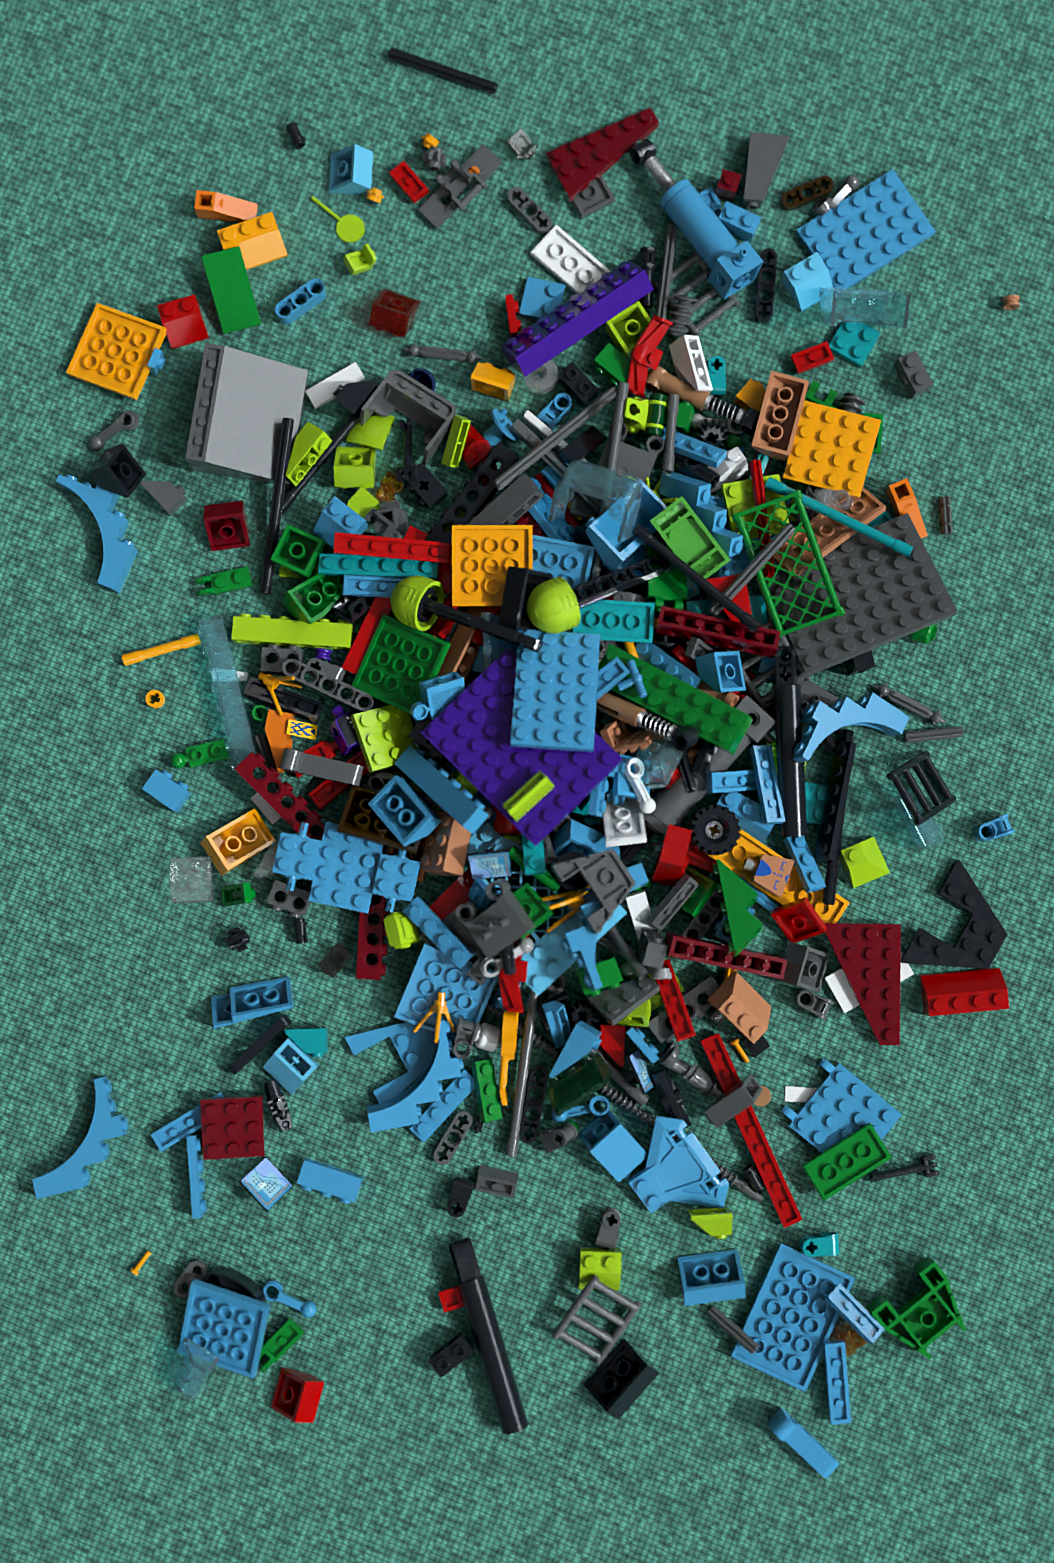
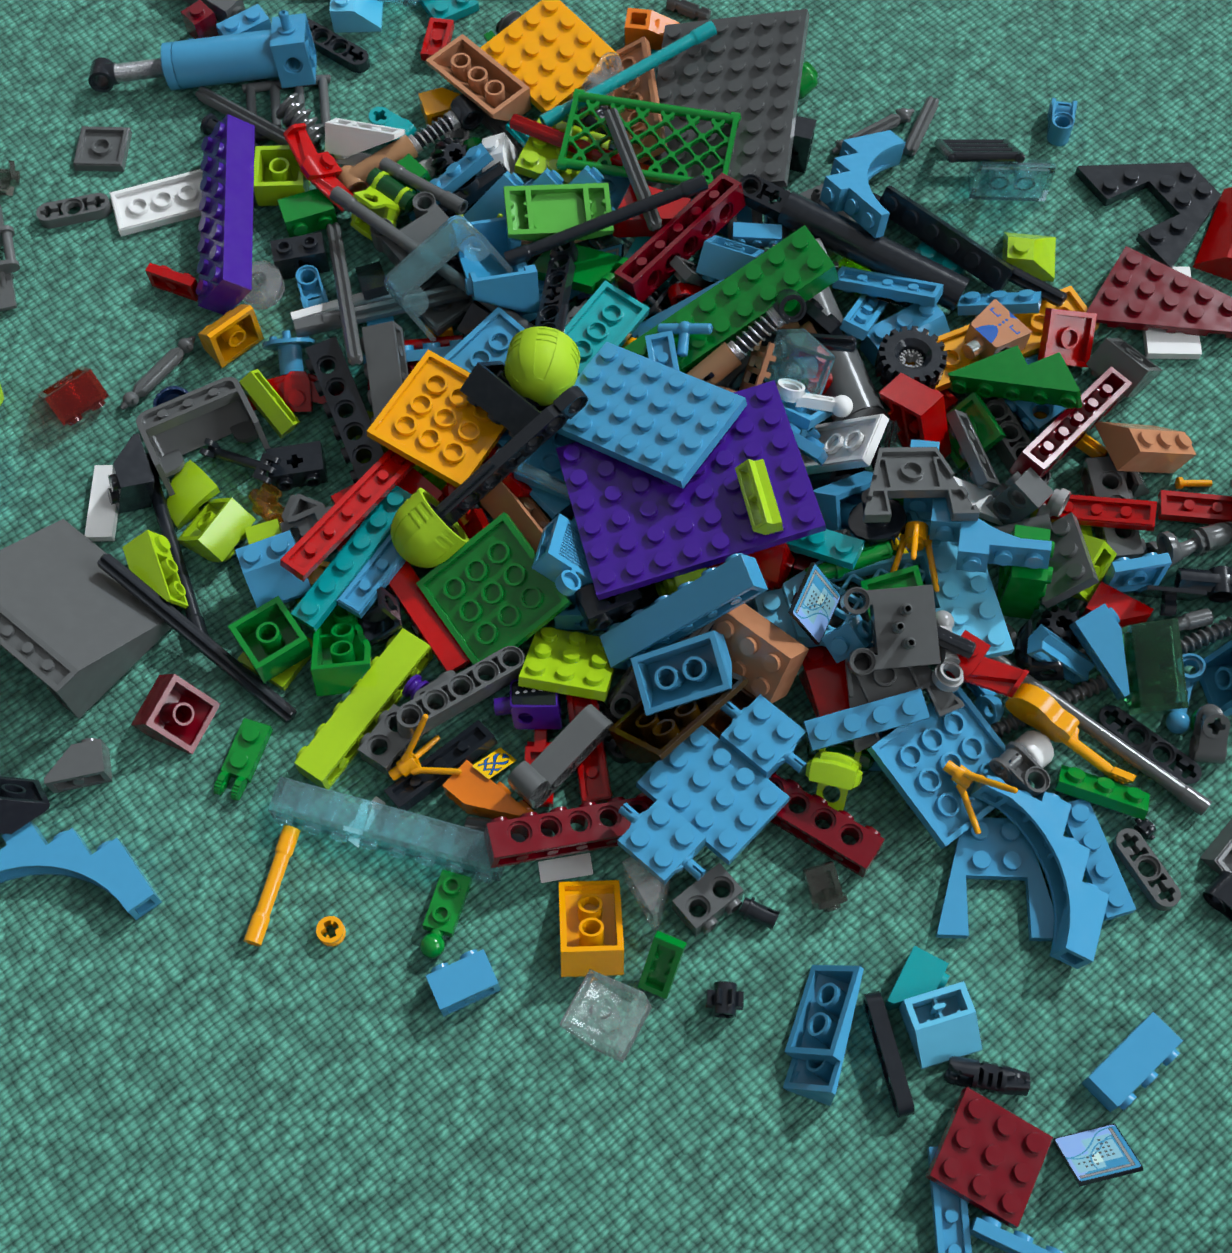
camera: 55 degrees left, 20 degrees down
(263, 712) = (441, 803): green hinge -> none
(540, 298) = (176, 246): dark azure plate -> none
(594, 154) = (67, 120): dark red wing -> none
(757, 1048) = (1197, 466): black plate -> none
(758, 677) = (756, 234): none -> dark azure piece
(815, 1005) = (1173, 379): dark grey piece -> none

